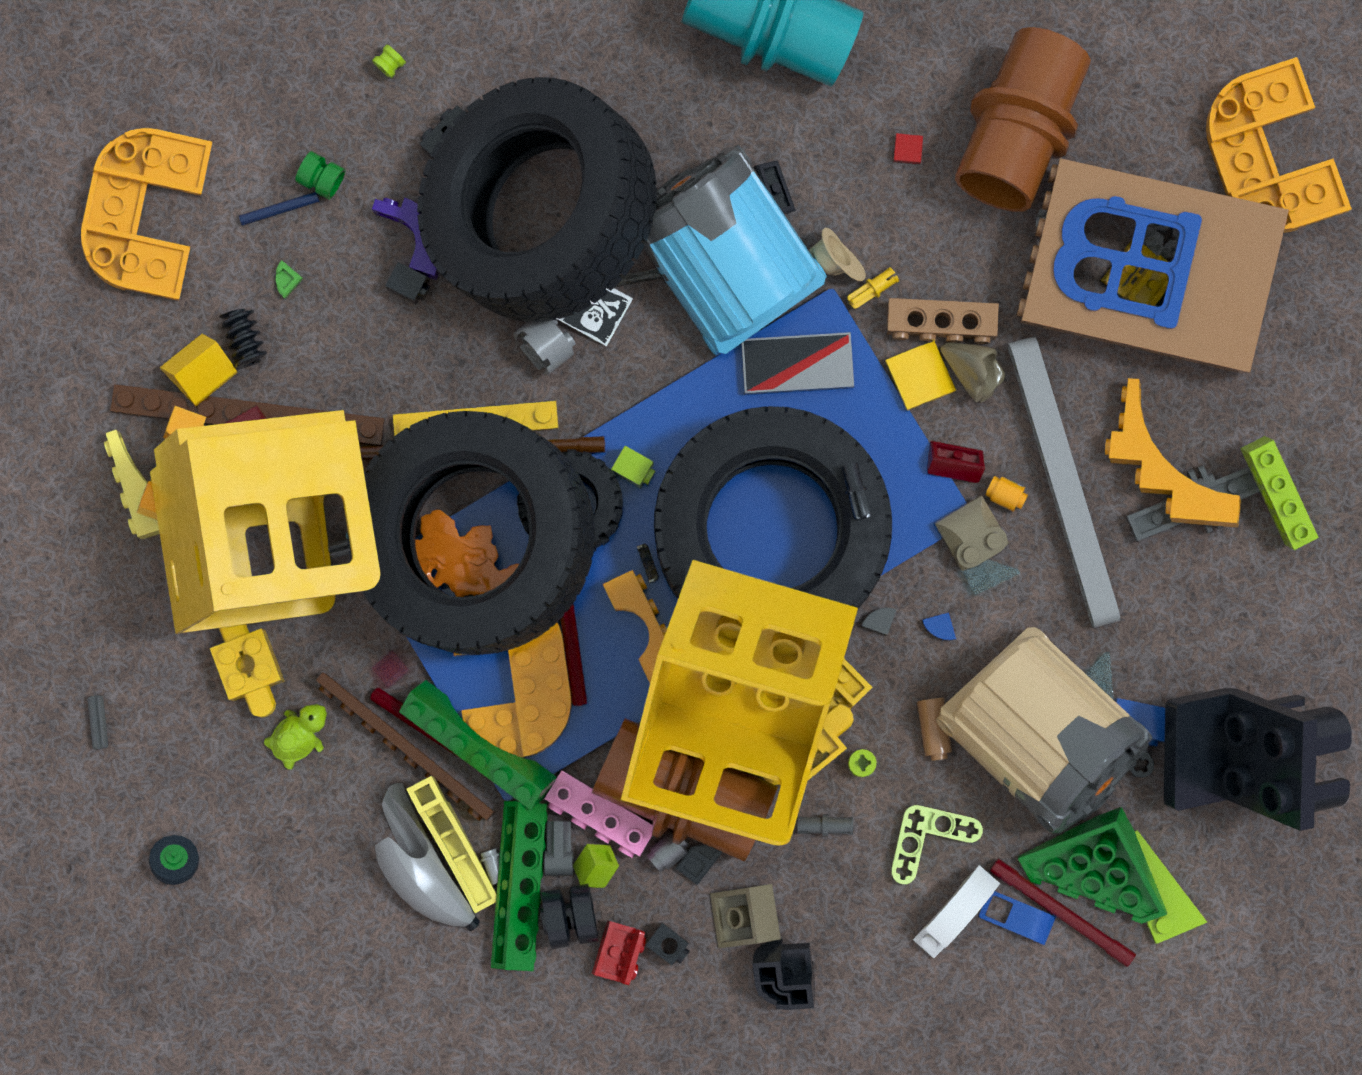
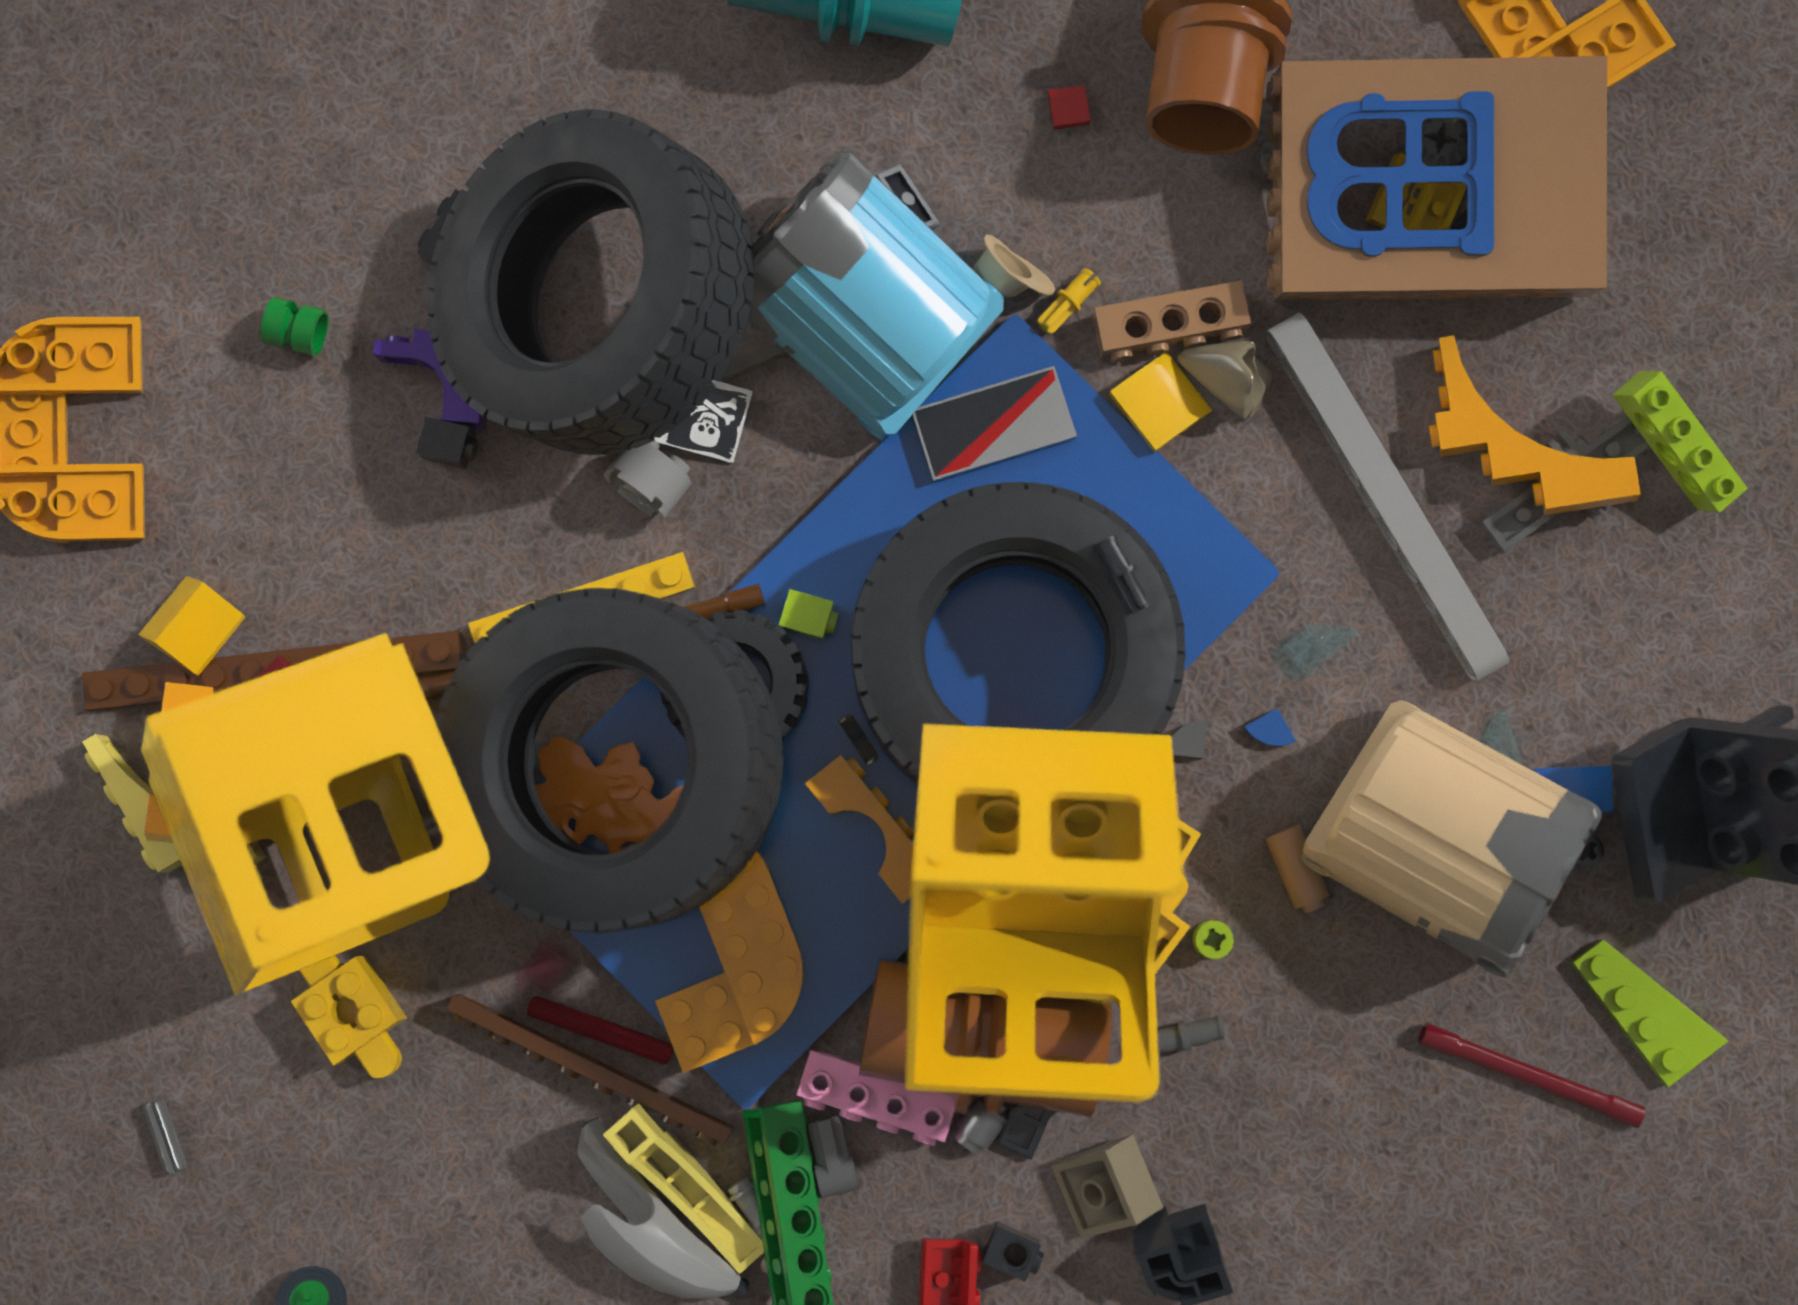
camera: 15 degrees left, 0 degrees up
(242, 338) = (240, 568): black piece -> none
(279, 208) = (251, 385): dark blue bar -> none
(286, 279) = (283, 476): bright green tile -> none
(295, 735) = (436, 1089): lime animal -> none
(388, 61) = (351, 154): lime wheel -> none
(517, 776) = (752, 1074): green arch -> none
(562, 917) = (858, 1252): black wheel -> none
(573, 658) = (790, 893): dark red axle -> none
(596, 865) = (888, 1167): lime panel -> none
(928, 826) = (1322, 1003): yellowish green beam -> none
(955, 462) = (1236, 505): dark red slope -> none
(957, 912) = (1396, 1111): white arch -> none
(972, 533) = (1283, 595): dark tan slope -> none
(1006, 493) = (1314, 530): light orange brick -> none
(1023, 919) = (1479, 1097): blue piece -> none
(1100, 863) = (1569, 997): green slope -> none

